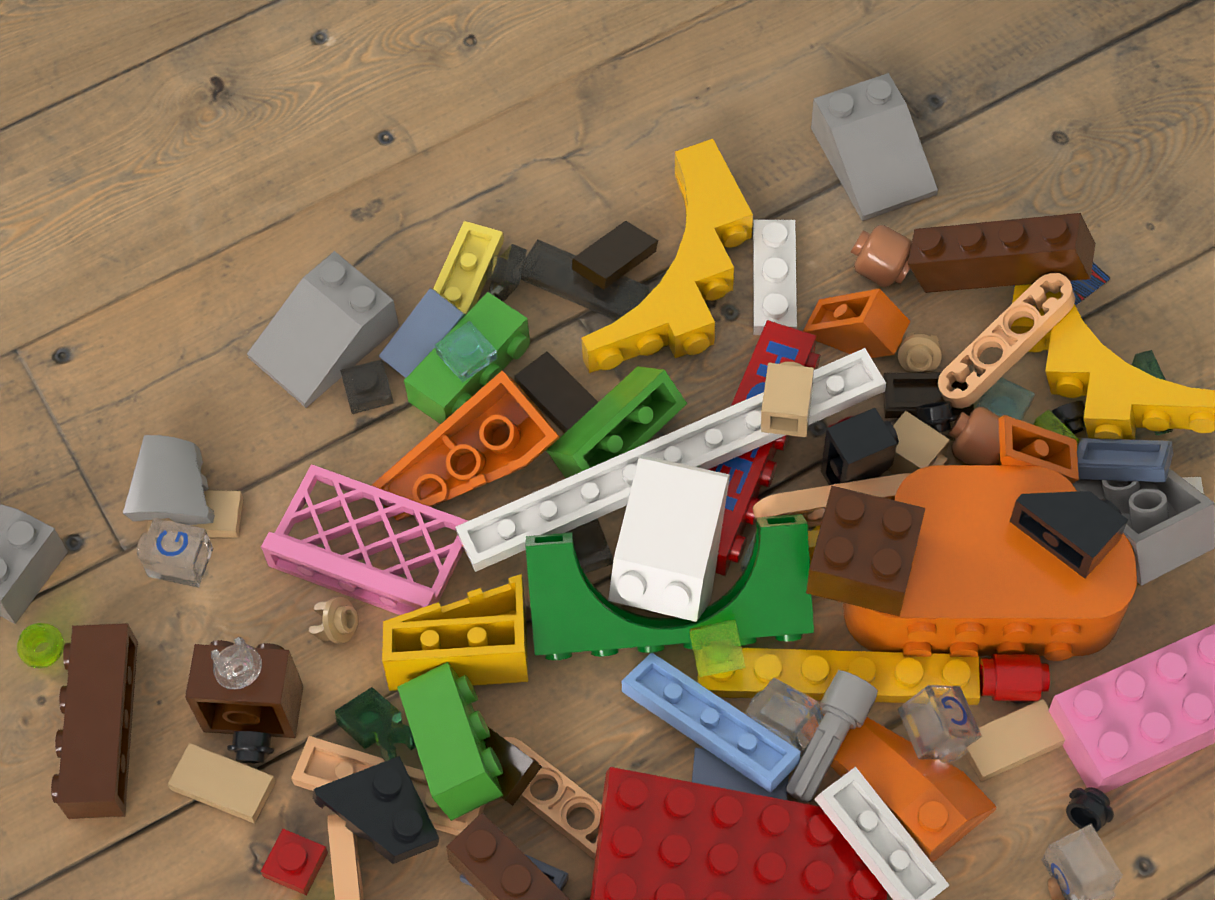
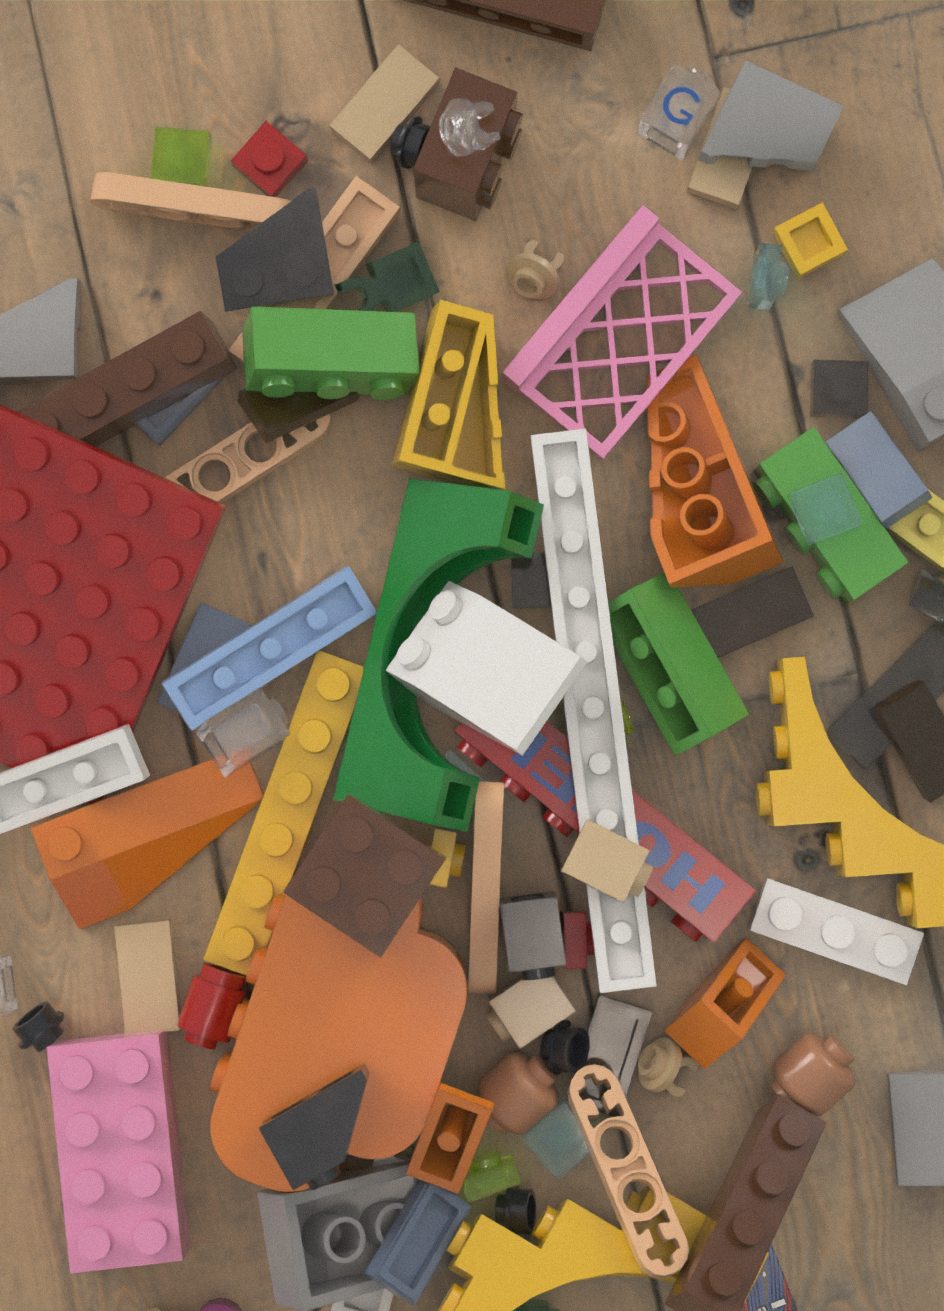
camera: 110 degrees right, 25 degrees up
(256, 434) = (810, 240): none -> yellow plate
(293, 454) = (768, 277): none -> clear light blue plate
(717, 648) = (342, 681): clear neon green plate -> none
(844, 708) = (228, 798): light grey piece -> none
(939, 723) = (179, 899): clear brick -> none

